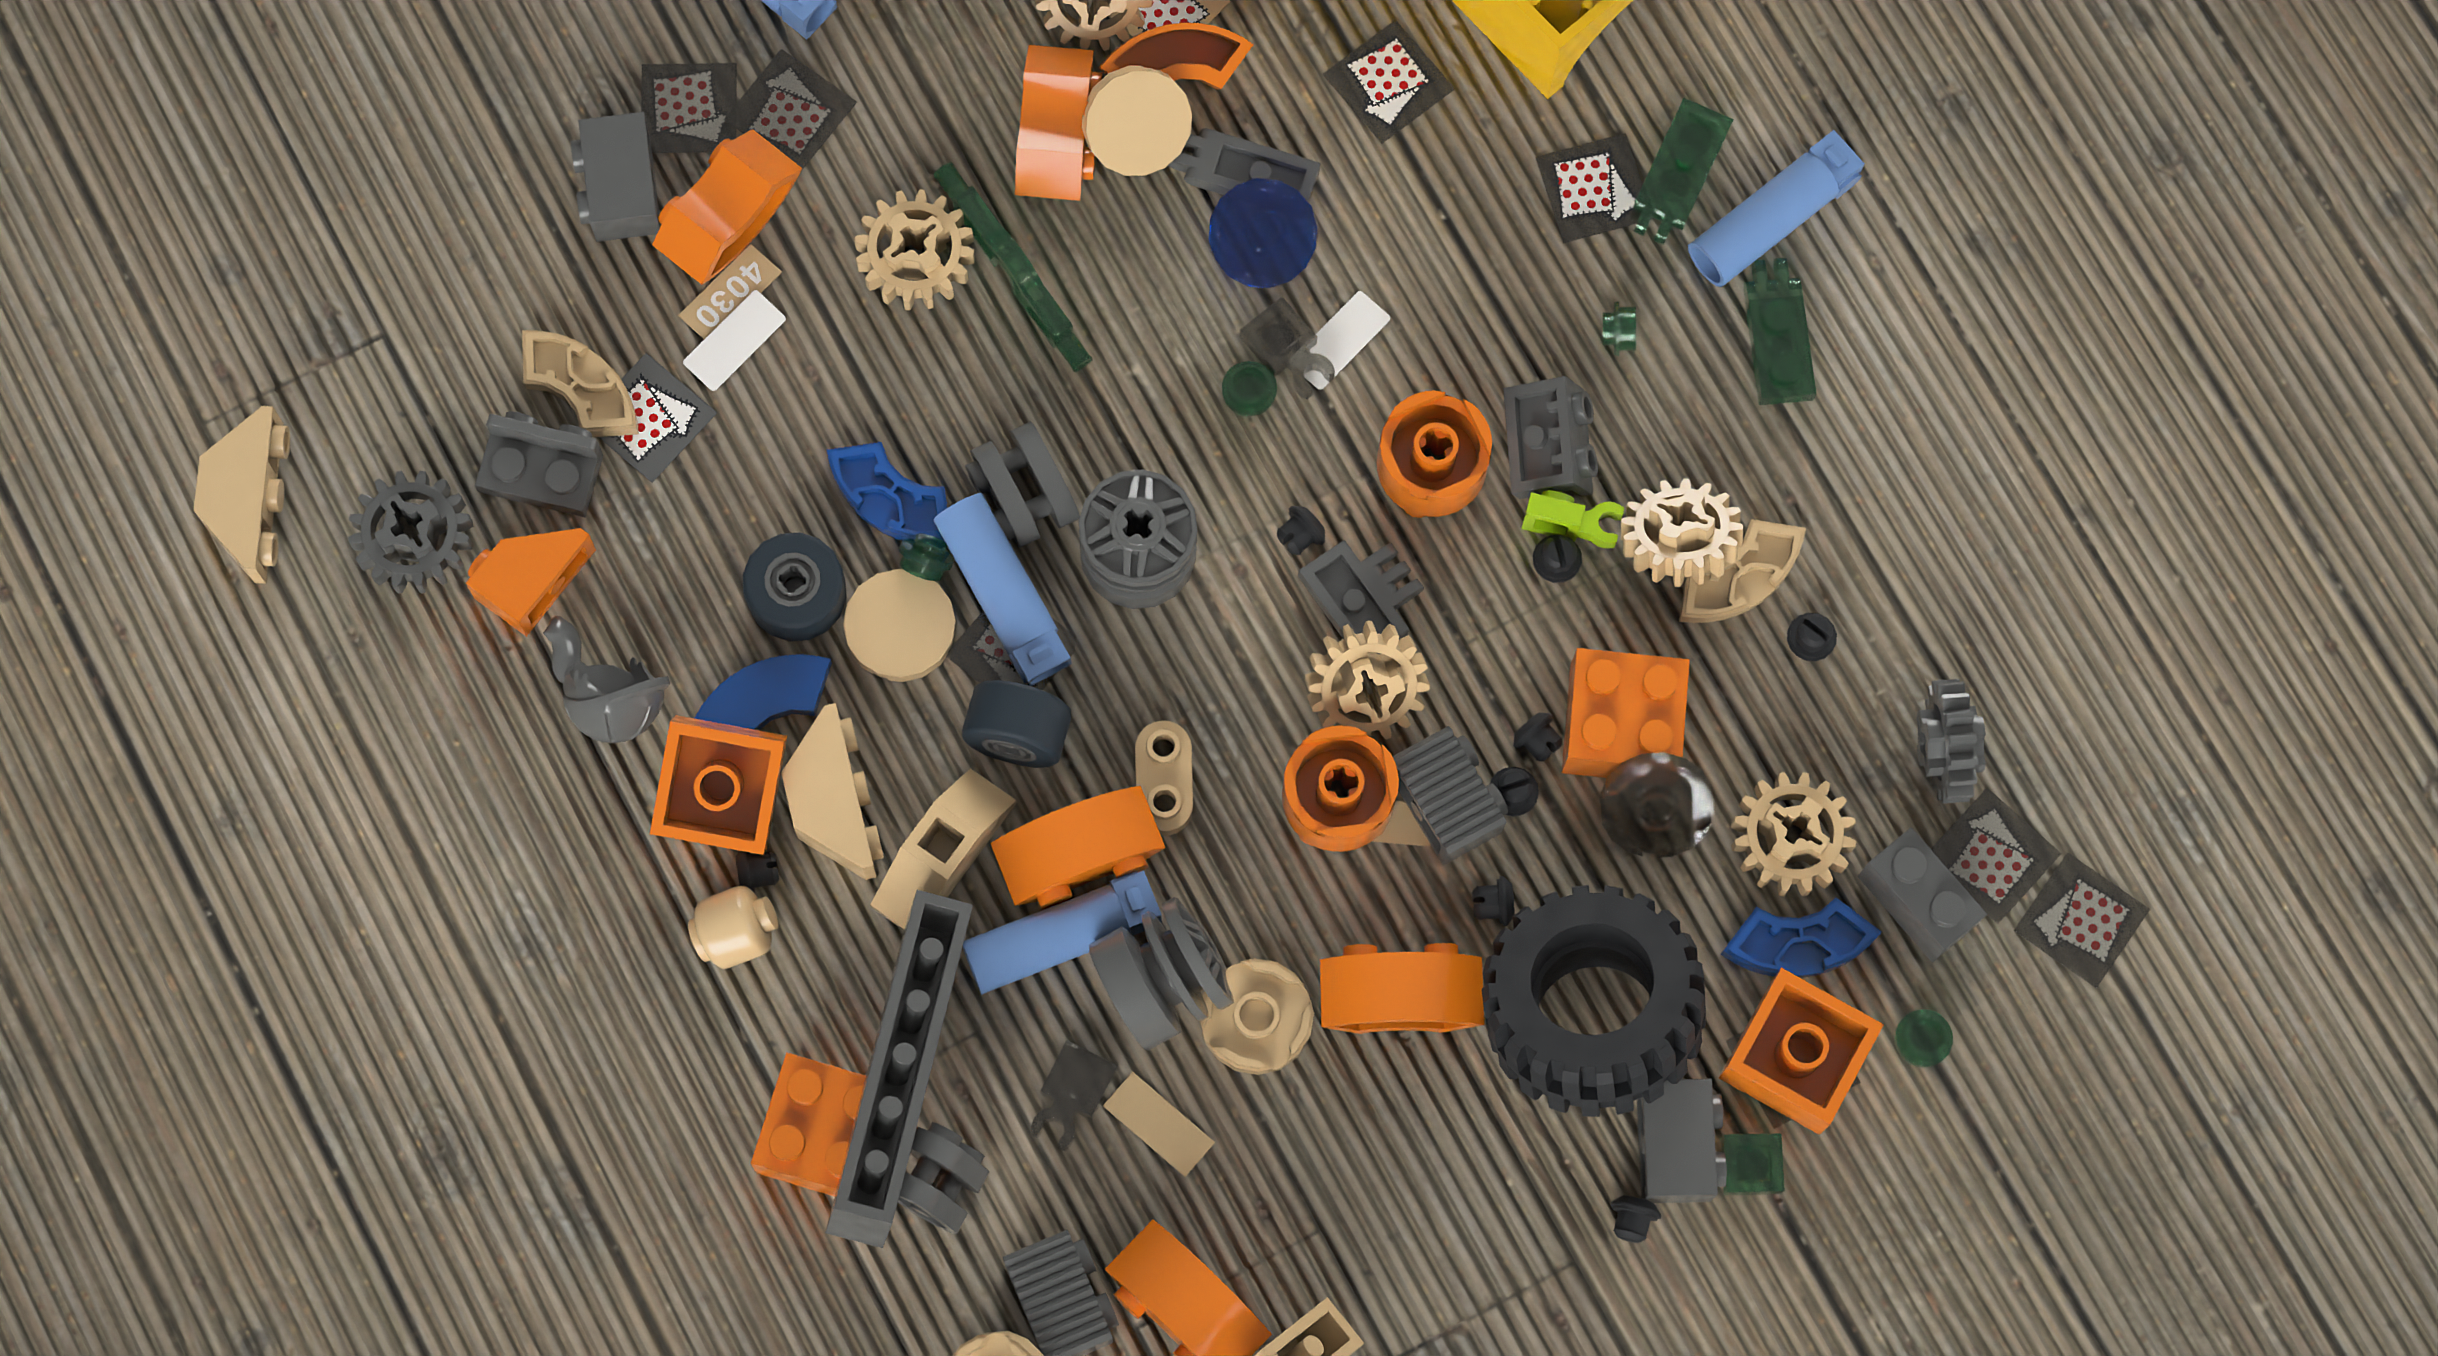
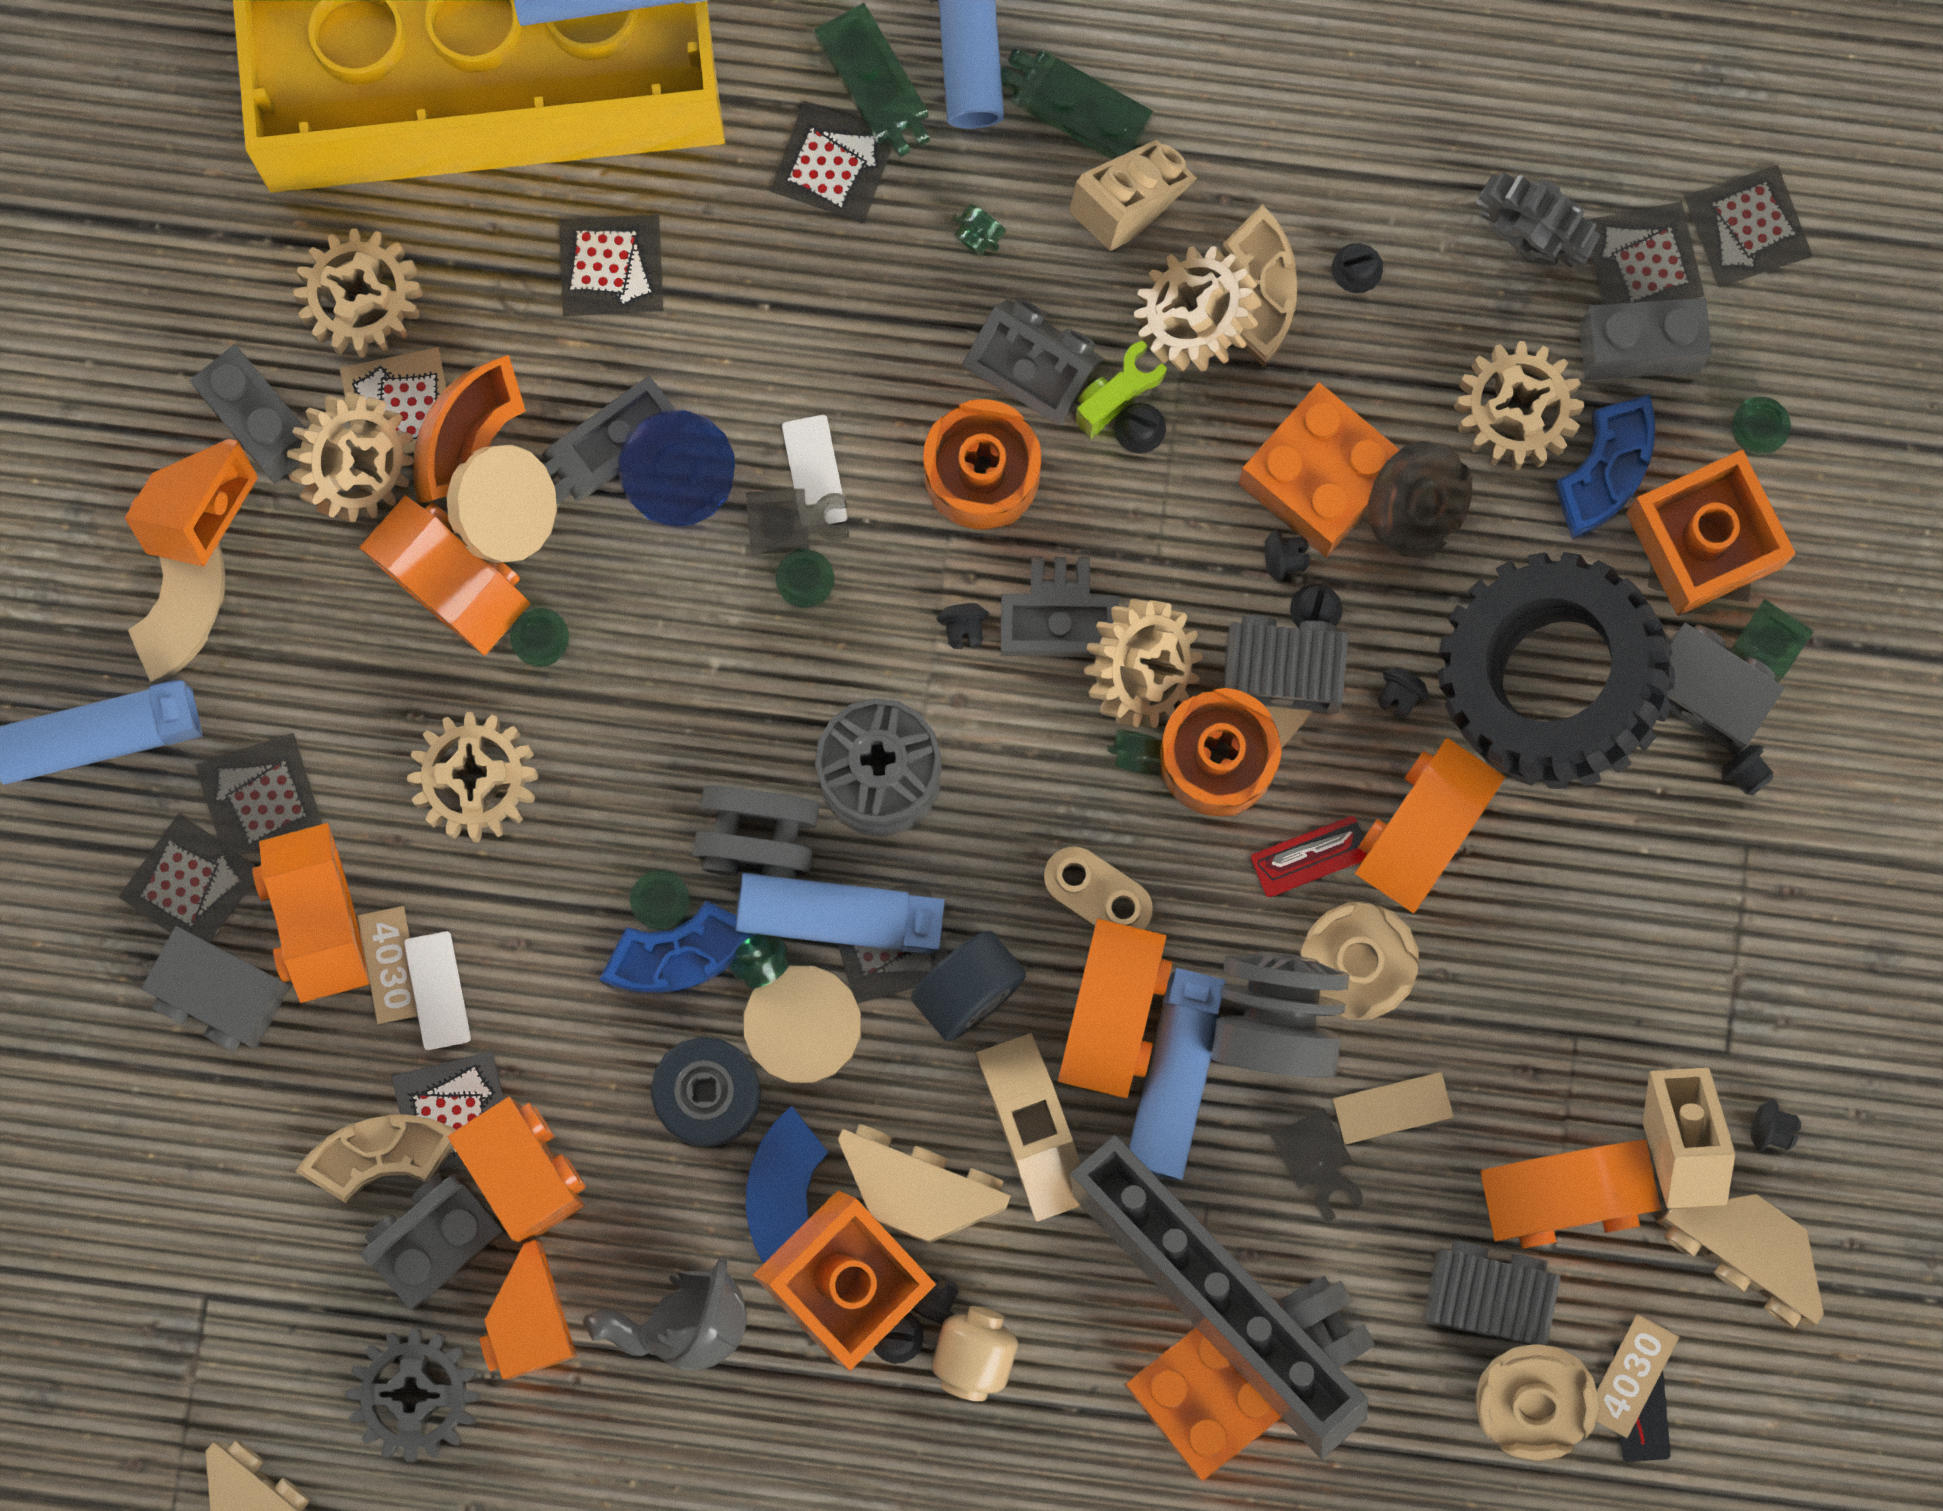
camera: 50 degrees left, 5 degrees up
(633, 485) = (517, 1170): none -> orange brick
(707, 864) = (902, 1341): none -> black piece
(920, 453) = (659, 899): none -> clear green plate
(1024, 280) = (568, 701): clear green piece -> none
(1059, 226) = (539, 637): none -> clear green plate
(1294, 725) = (1135, 750): none -> clear green plate
(1310, 919) = (1309, 856): none -> sticker
(1735, 418) = (1129, 192): none -> tan slope

